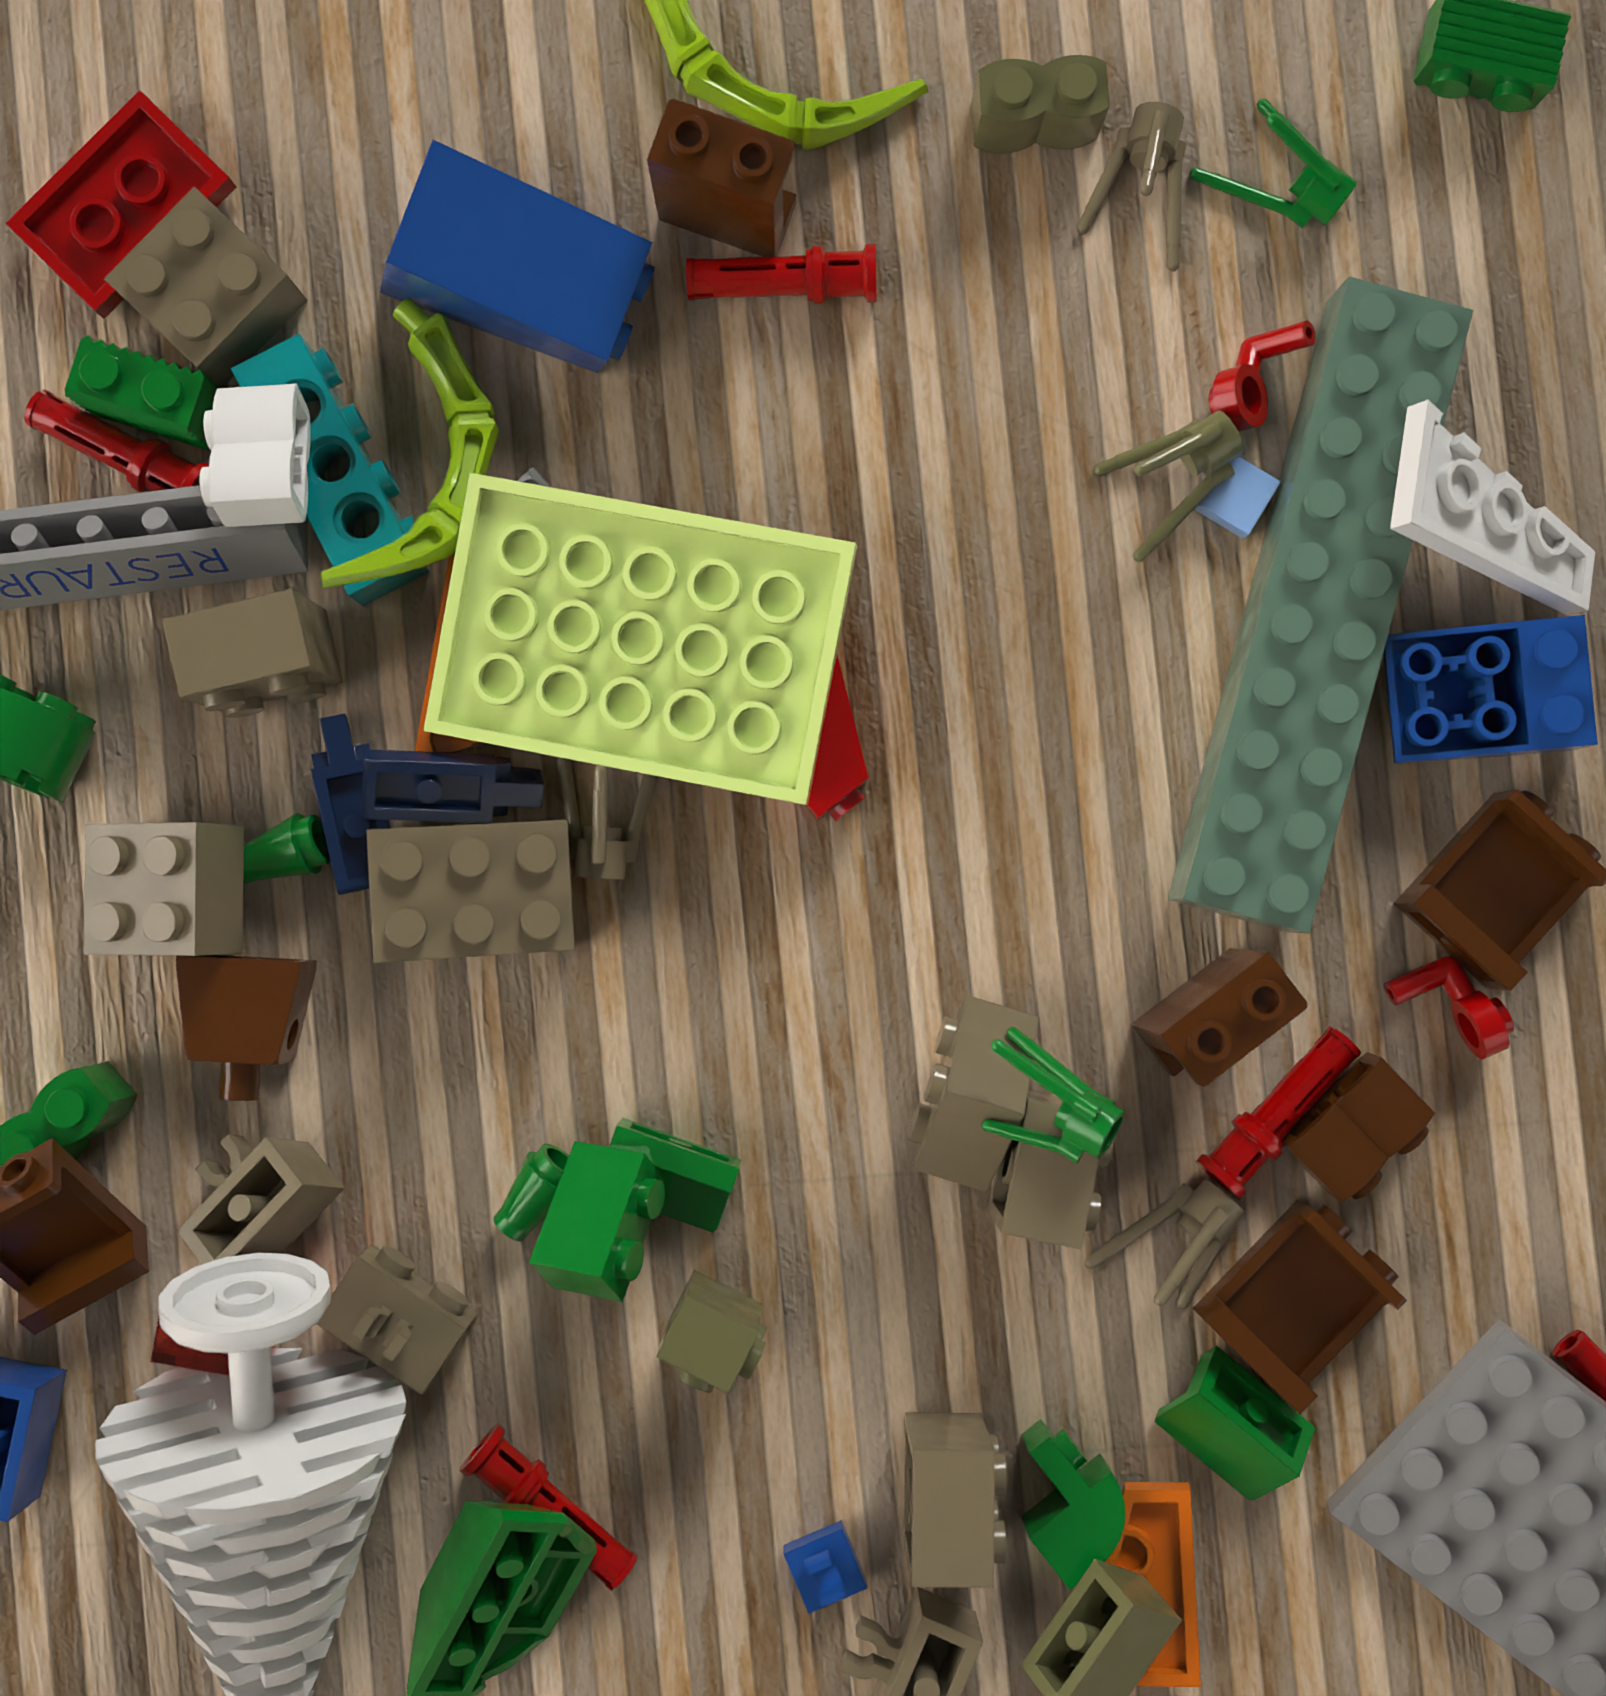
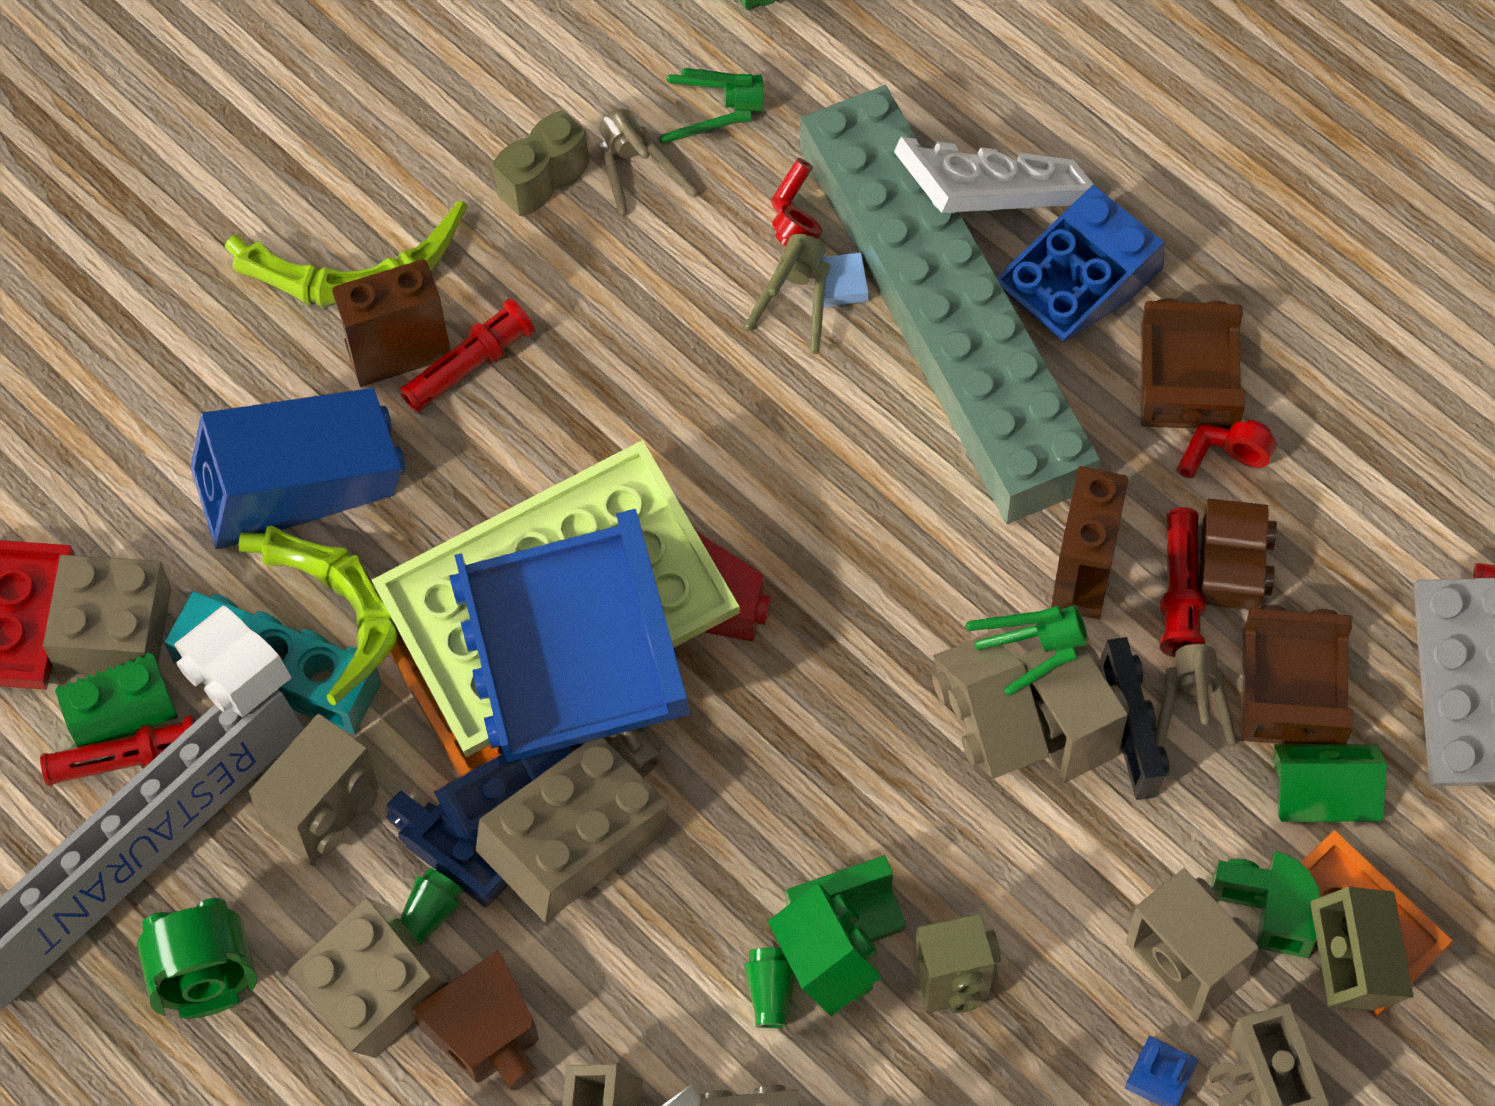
camera: 30 degrees left, 25 degrees down
(603, 704) = (570, 641): none -> blue panel
(1133, 1163) = (1144, 759): none -> black plate

